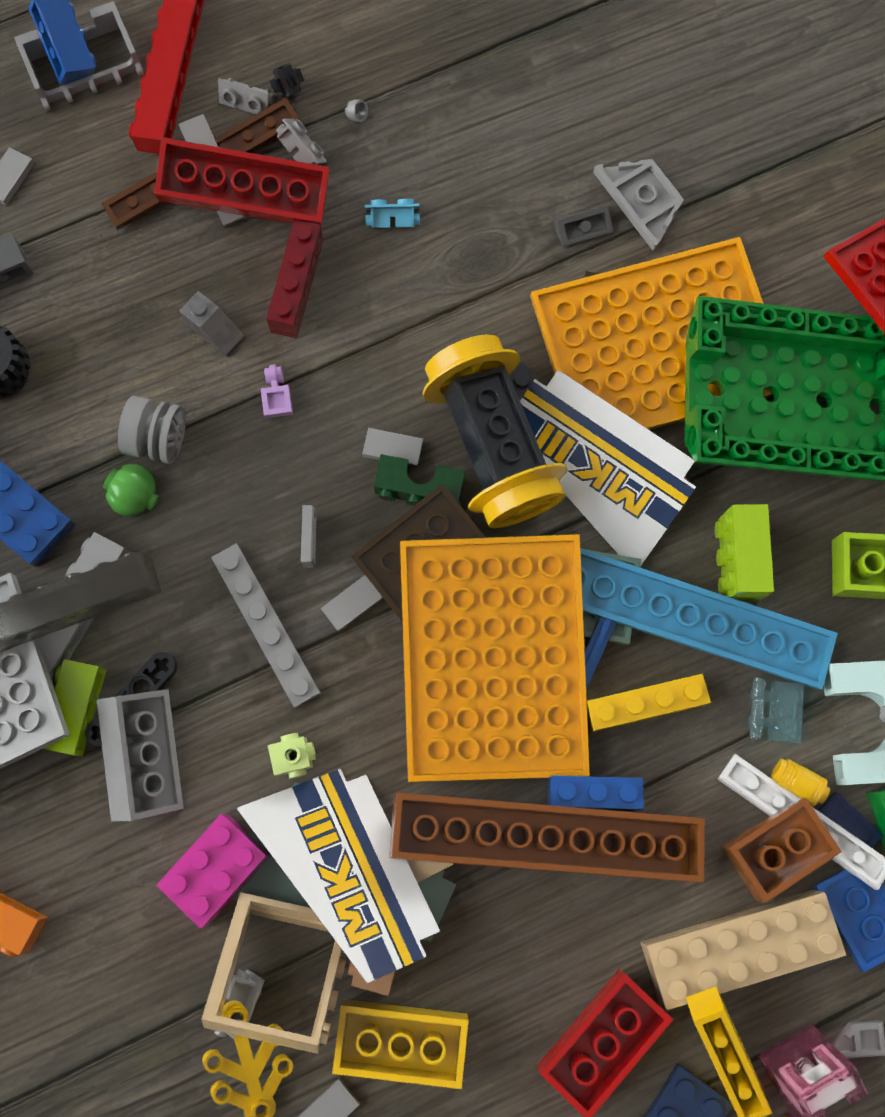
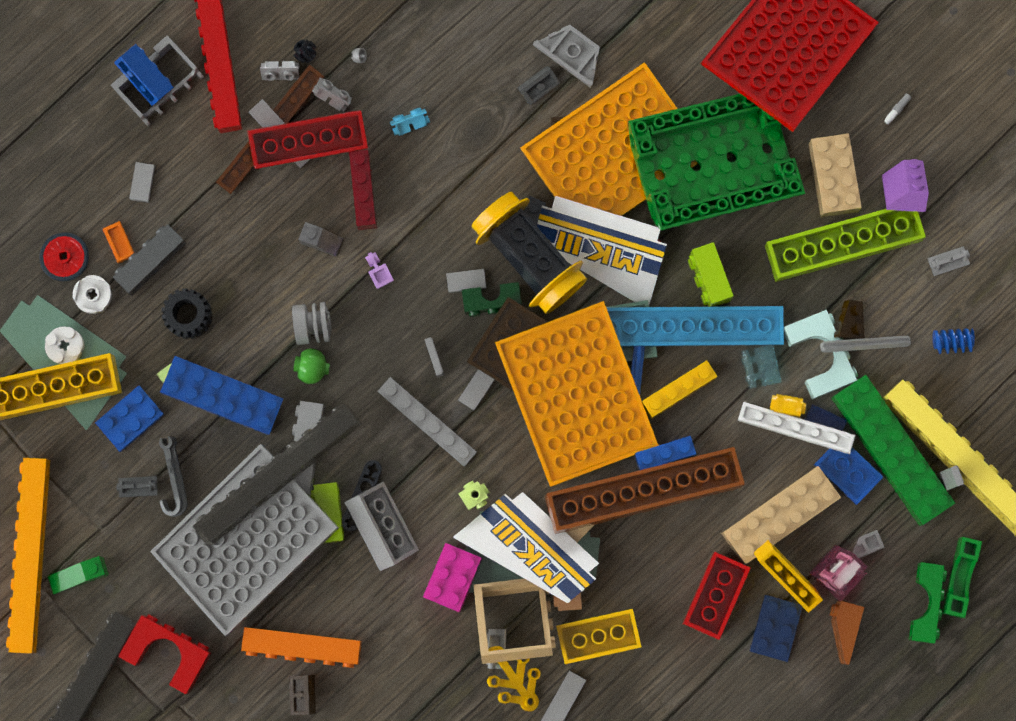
camera: 10 degrees left, 5 degrees up
(781, 850) = (786, 449): dark orange slope -> none

